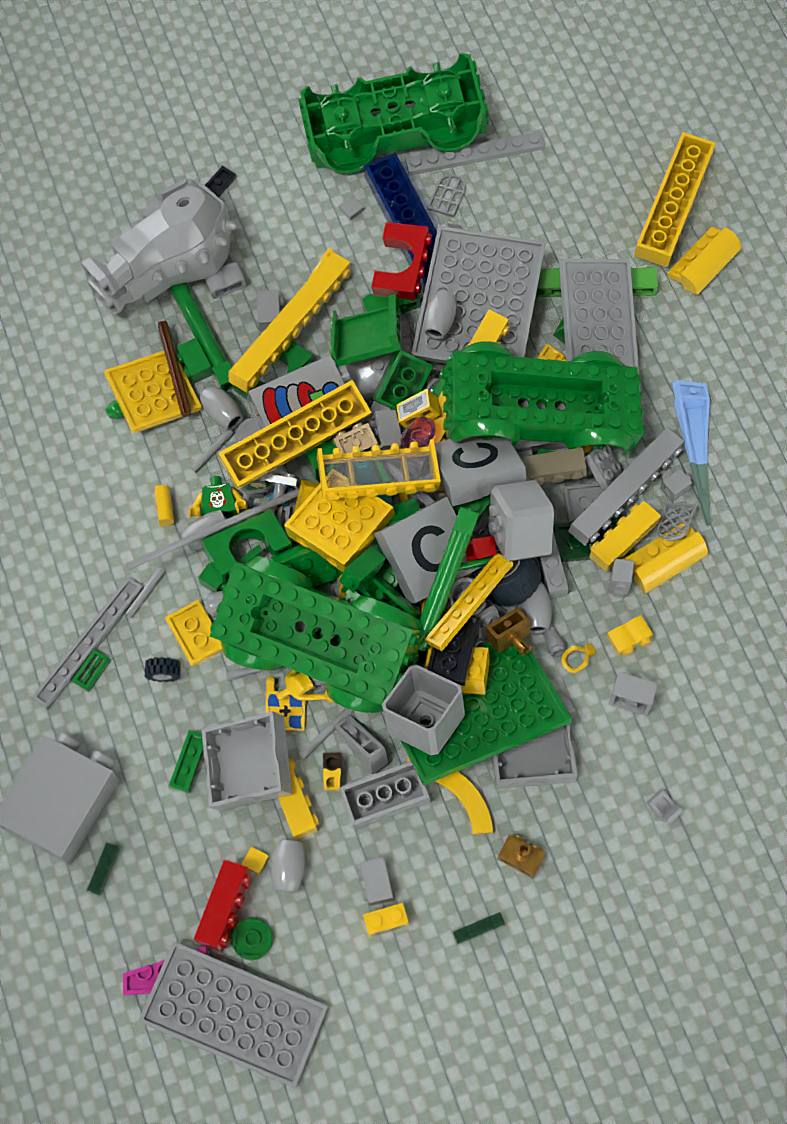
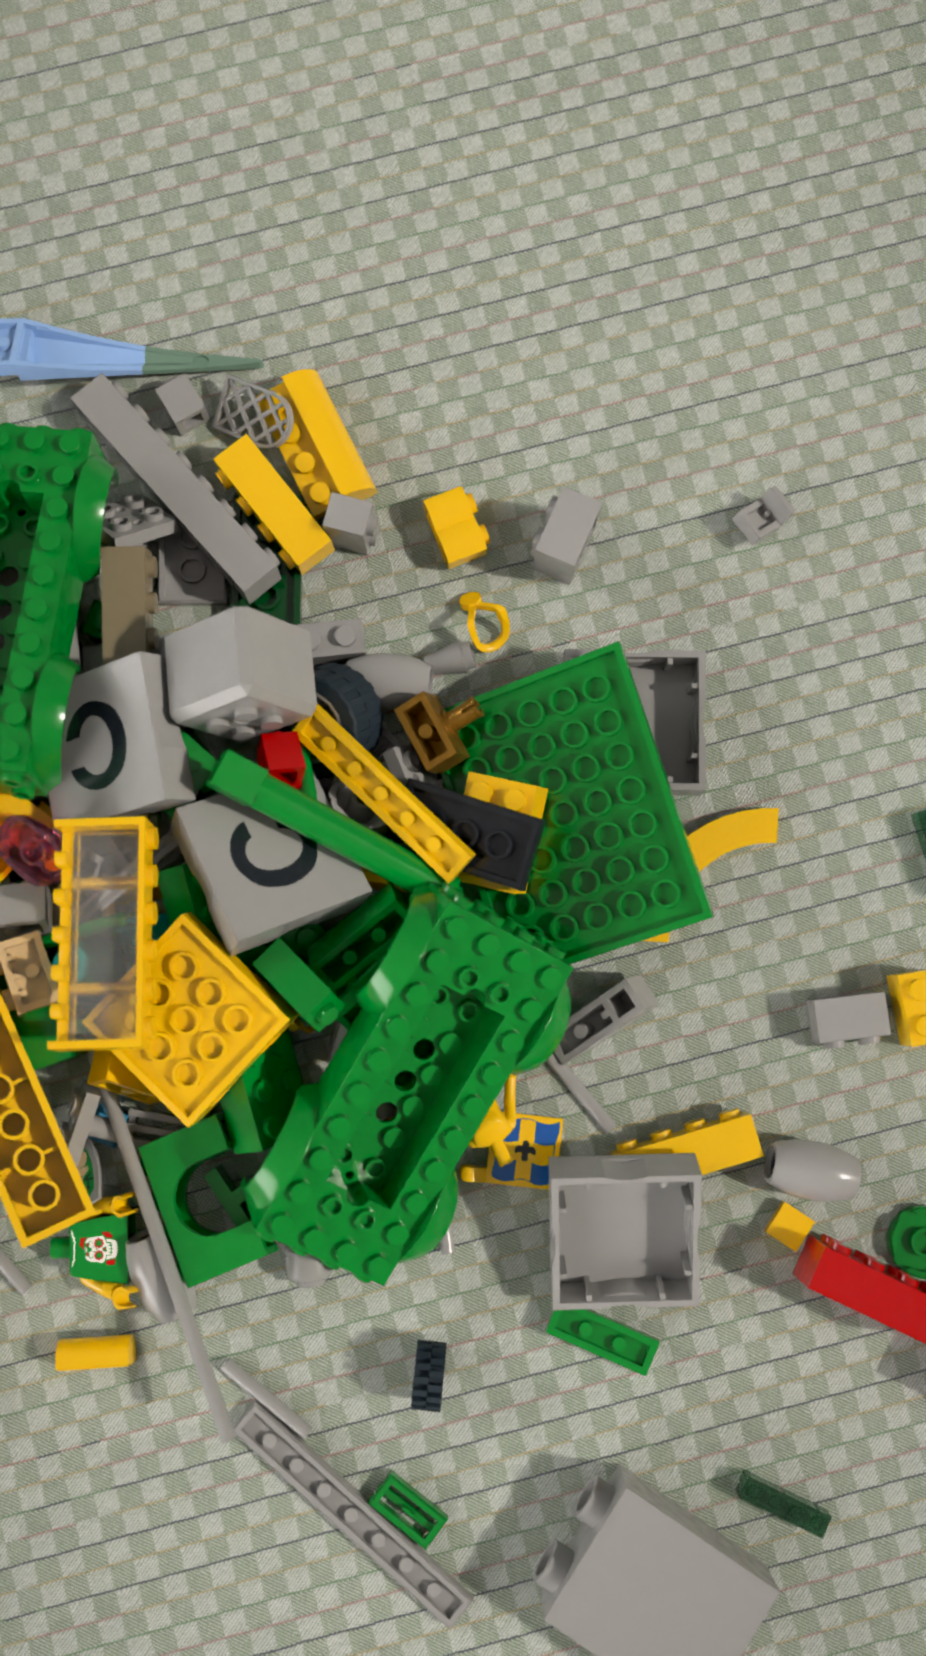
camera: 85 degrees left, 15 degrees up
(192, 631) = (353, 1313): yellow tile -> none
(210, 579) = (258, 1273): green brick -> none
(332, 771) = (645, 1075): leg -> none
(383, 795) = (705, 992): light grey brick -> none
(422, 697) = (555, 905): light grey plate -> none
(521, 855) = (824, 765): pearl gold brick -> none

